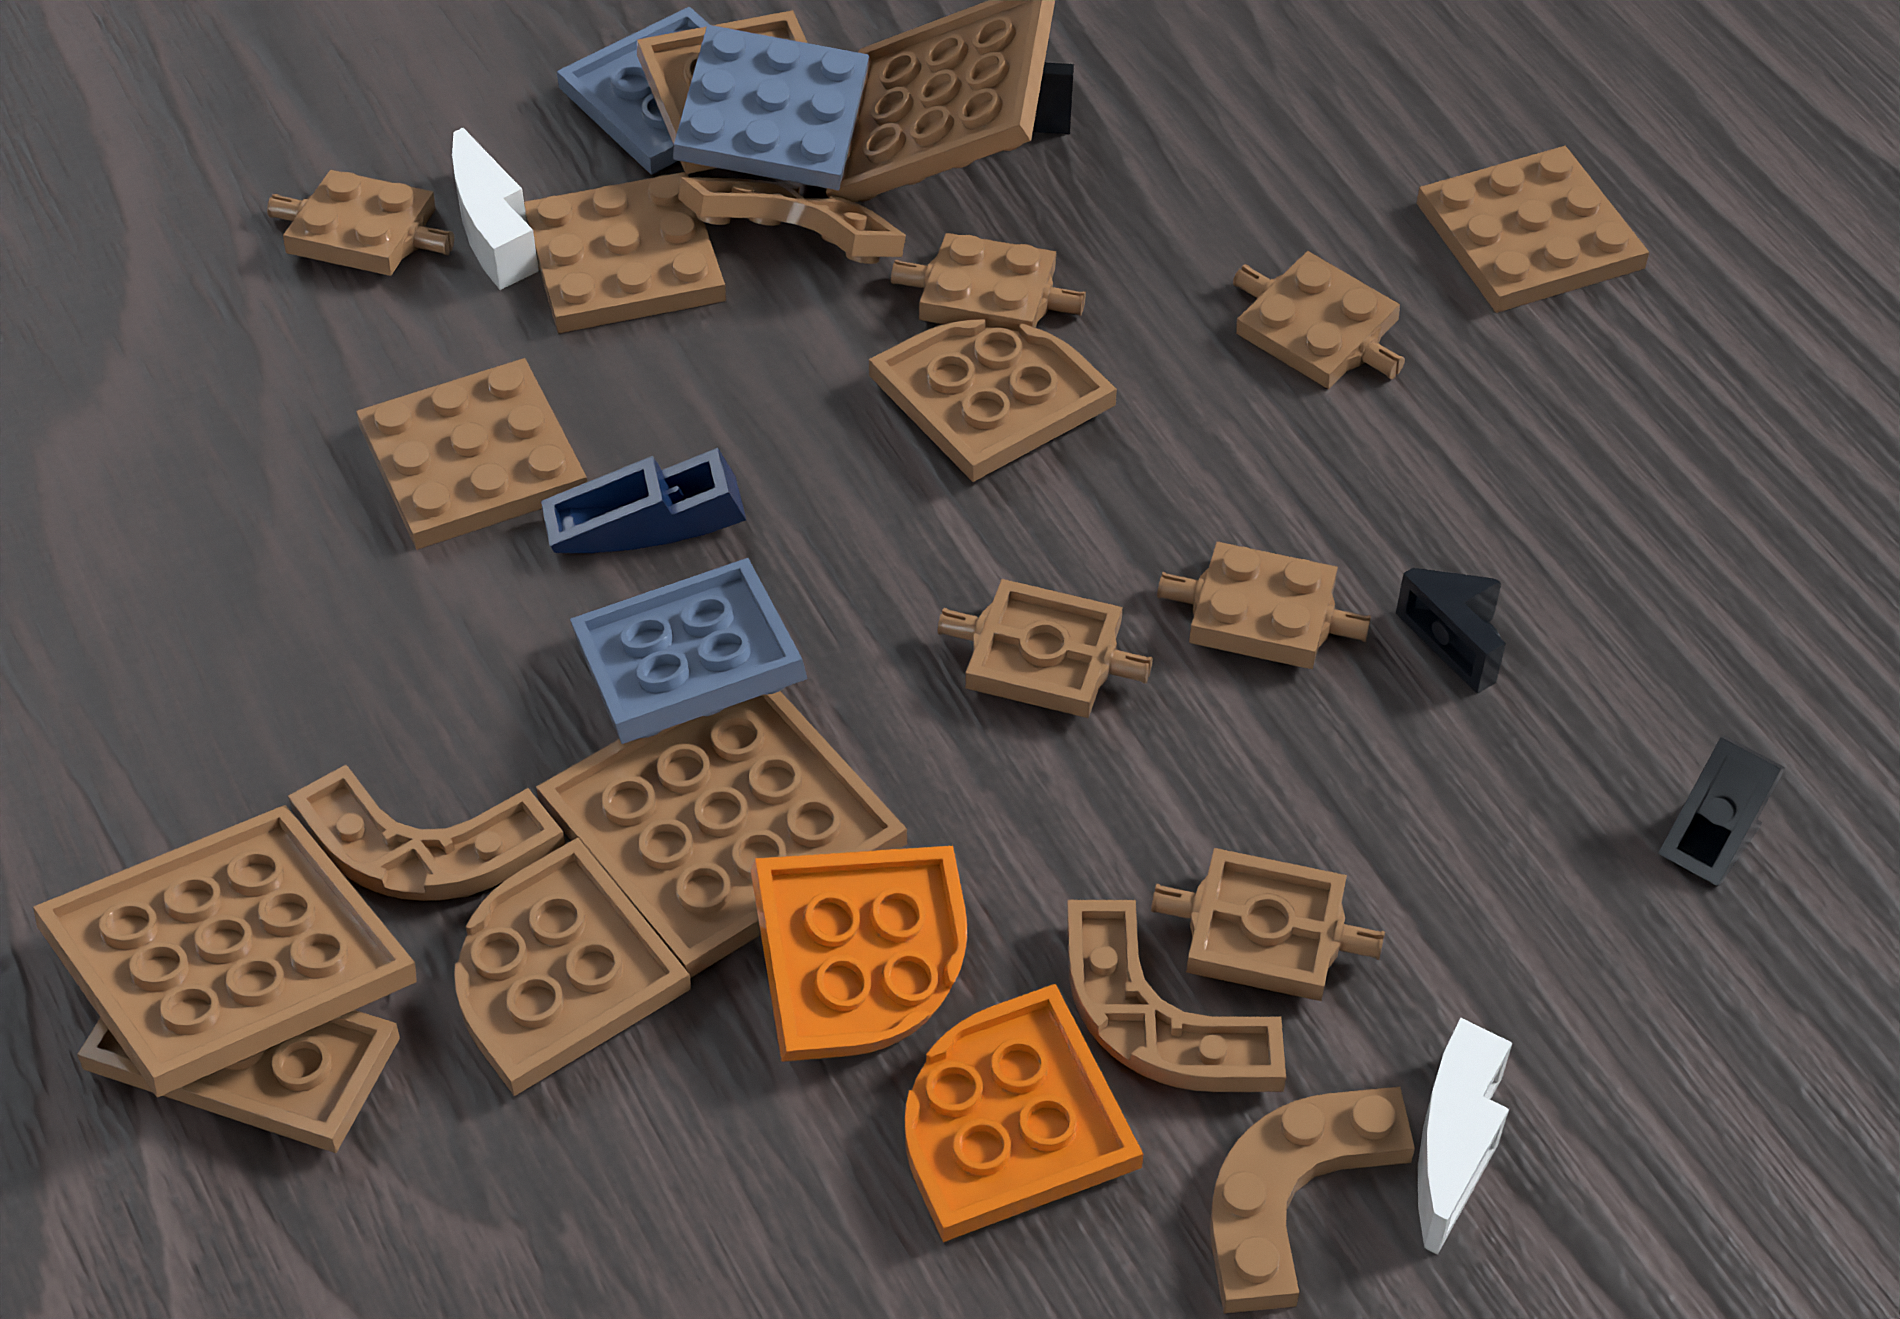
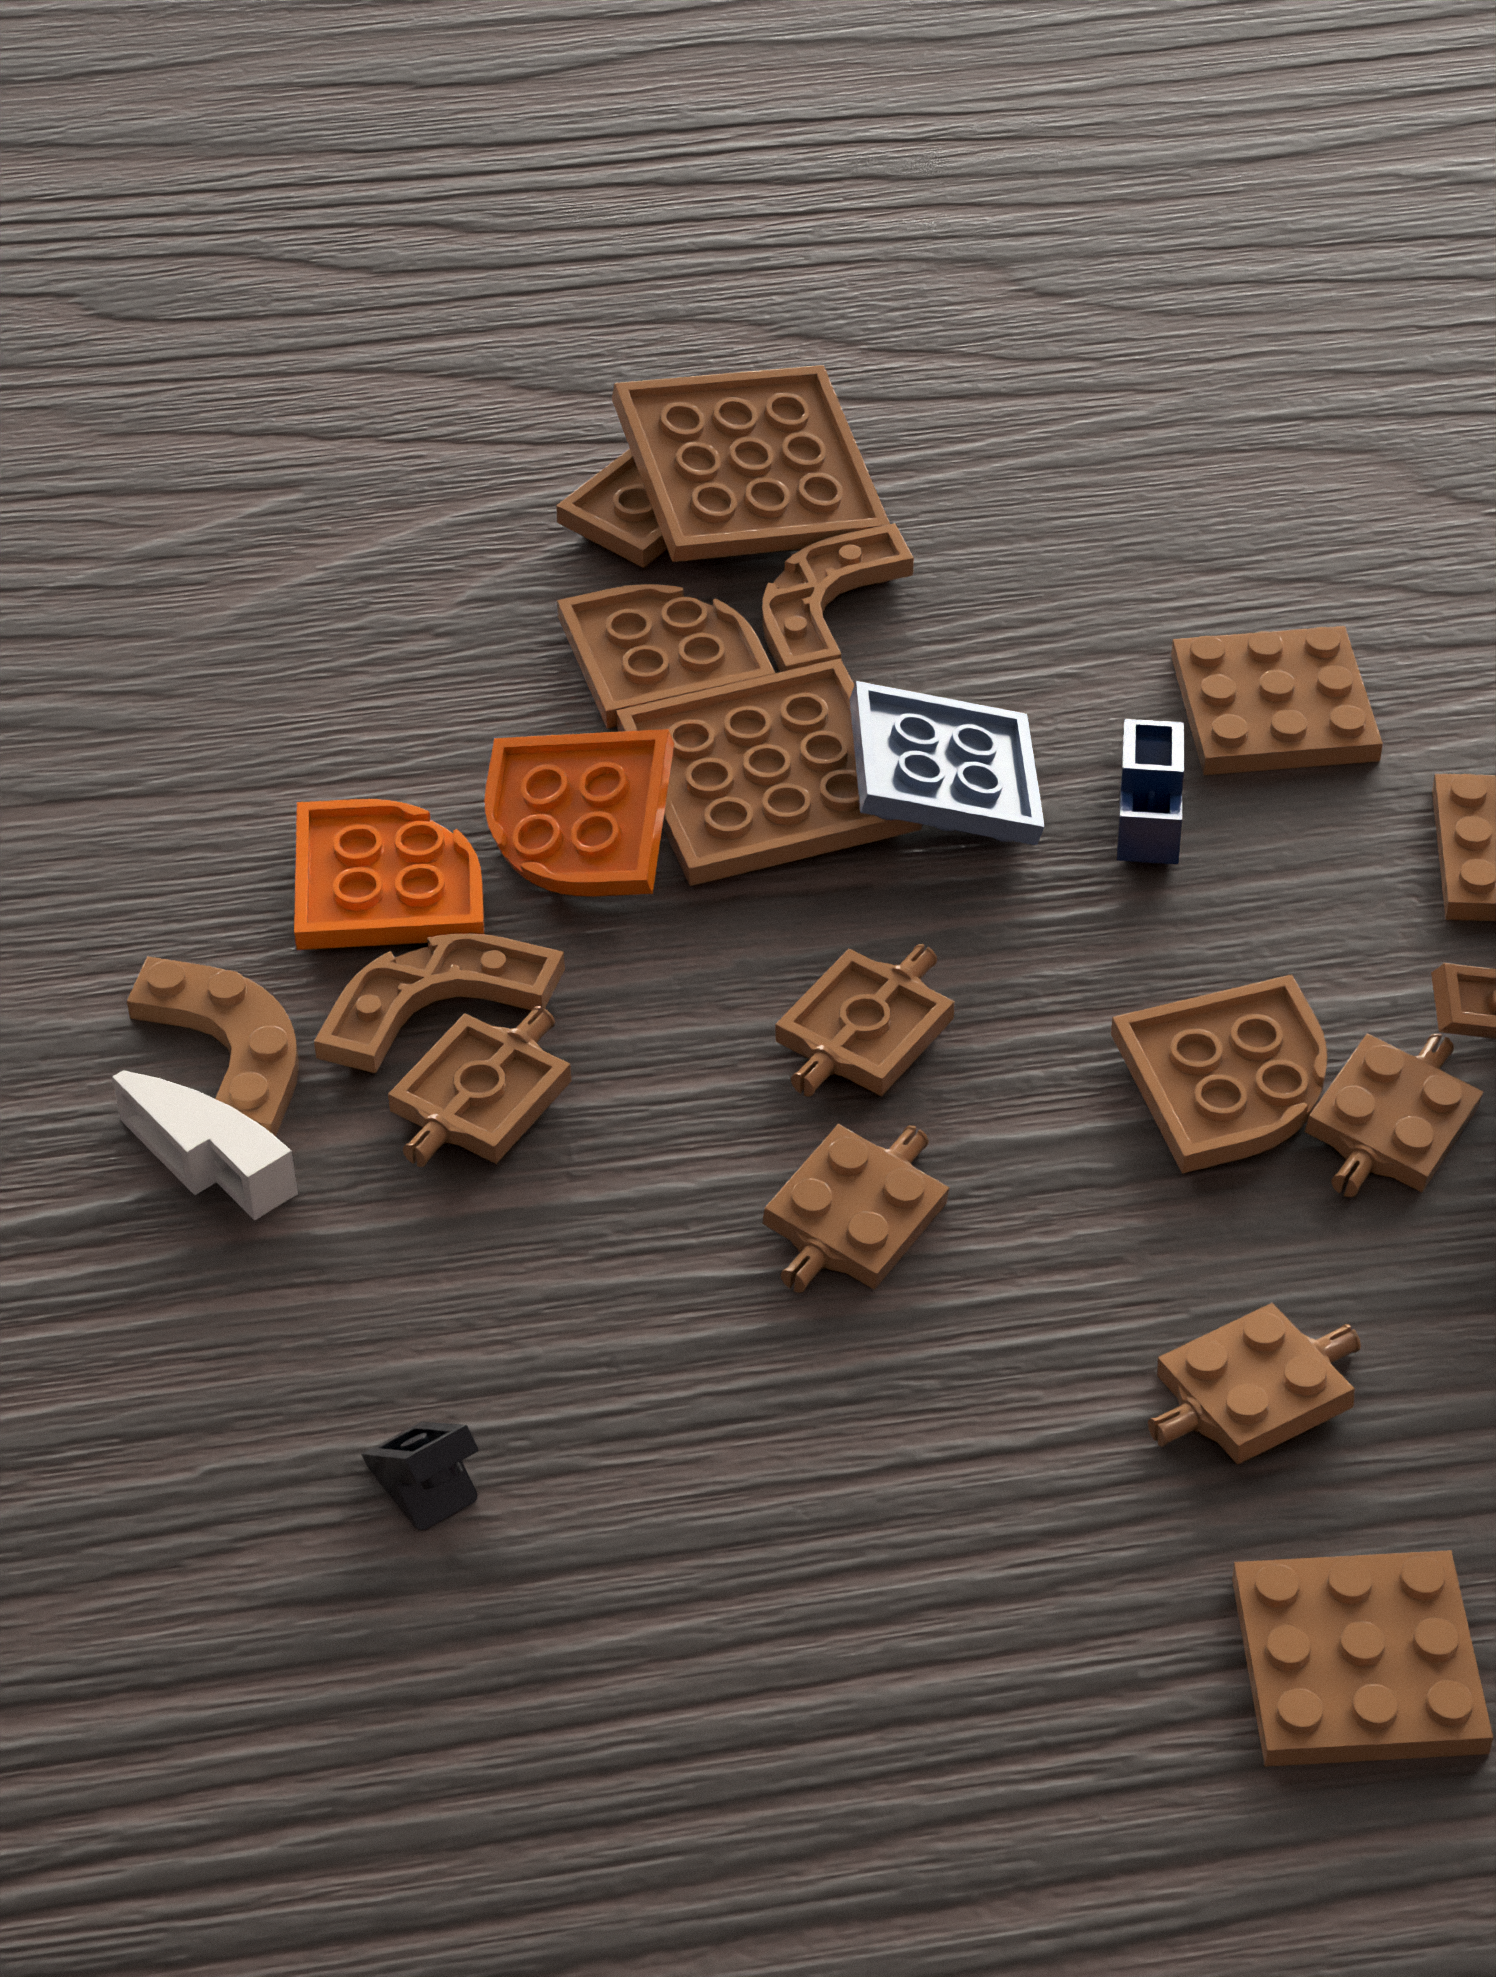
camera: 110 degrees right, 5 degrees down
(1453, 619) = (763, 1330): black slope -> none

